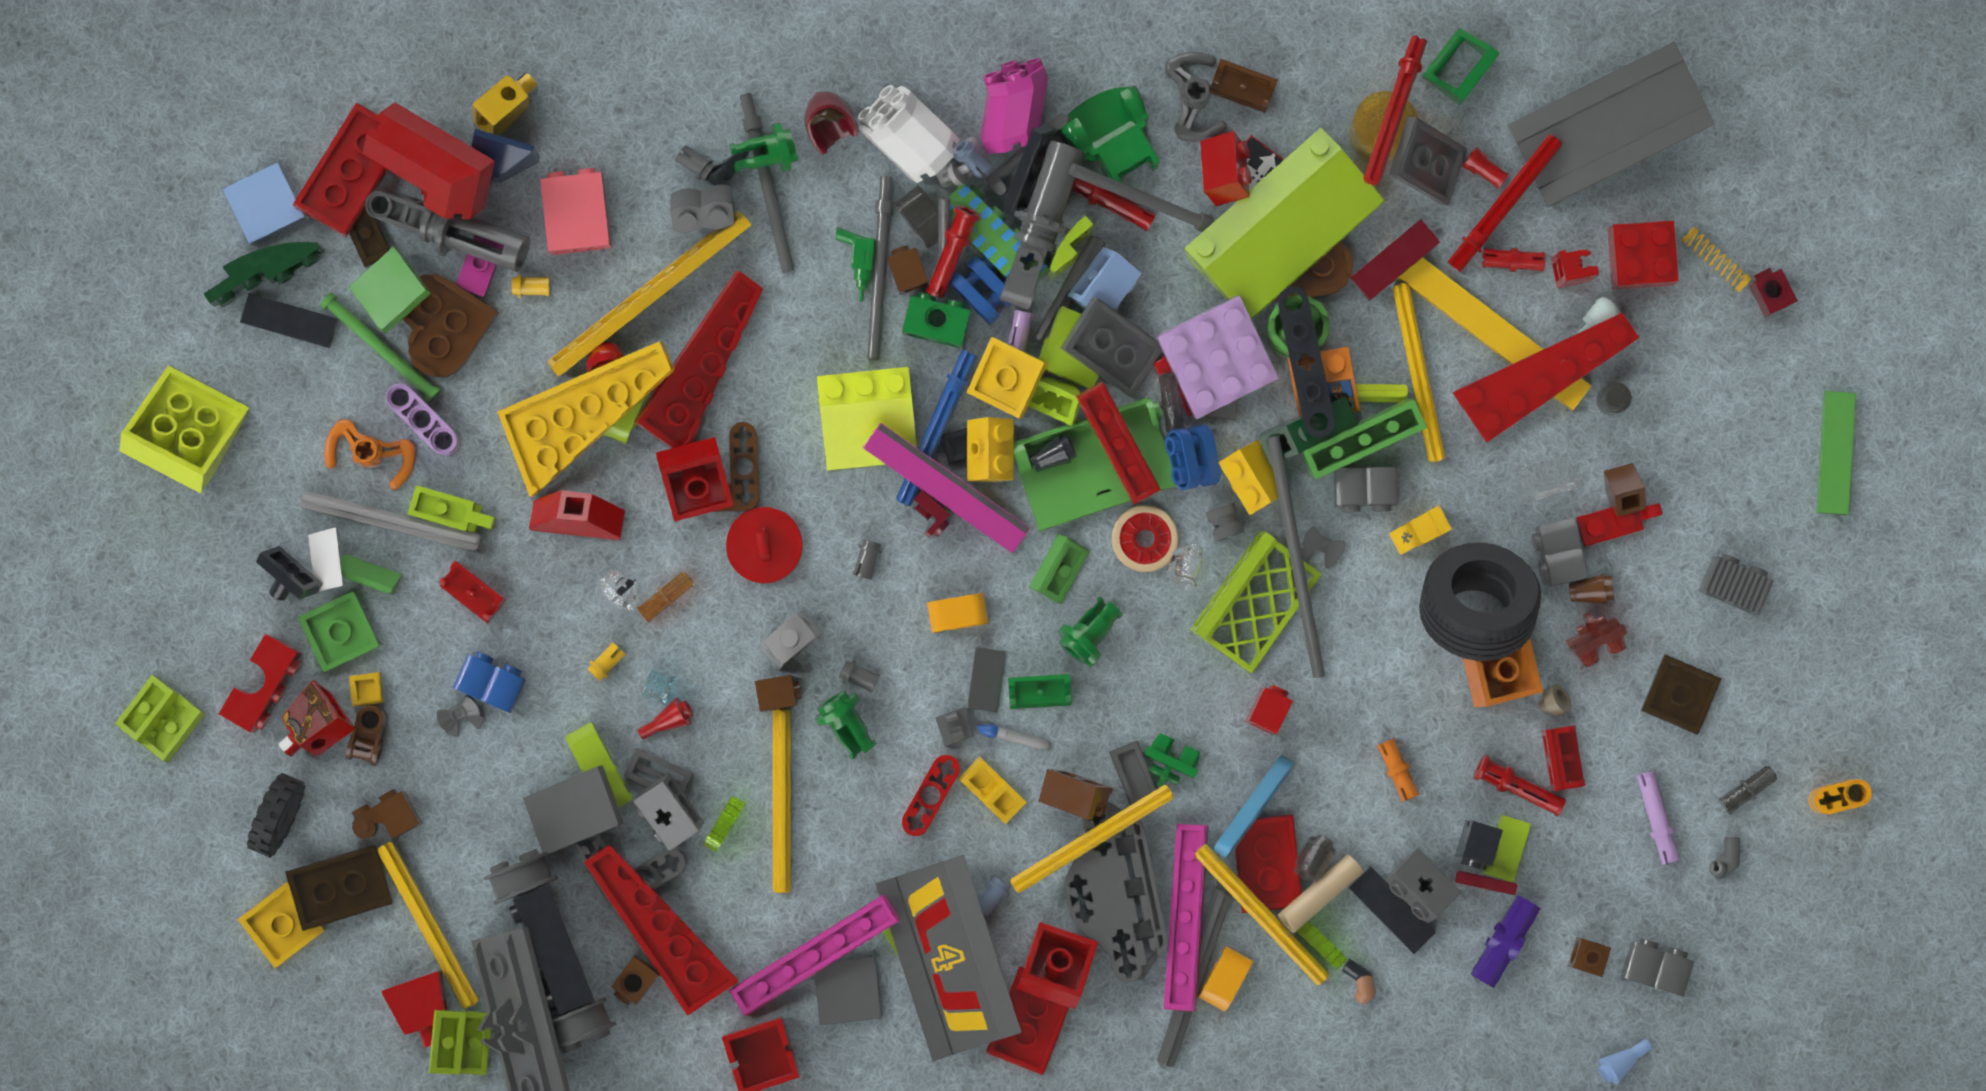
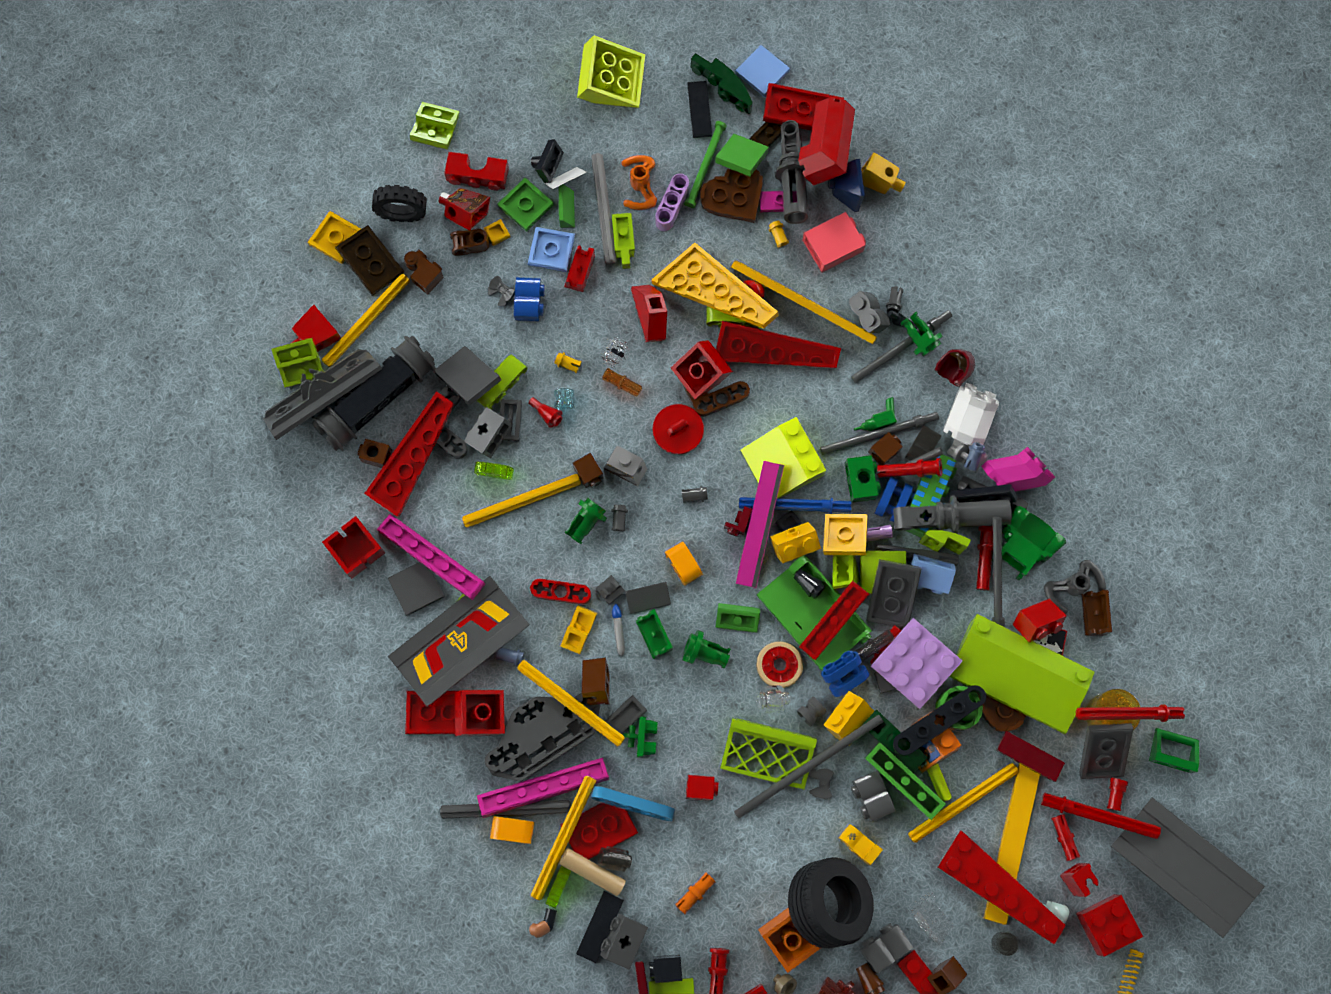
camera: 75 degrees right, 10 degrees down
(423, 620) = (551, 249): none -> light blue tile

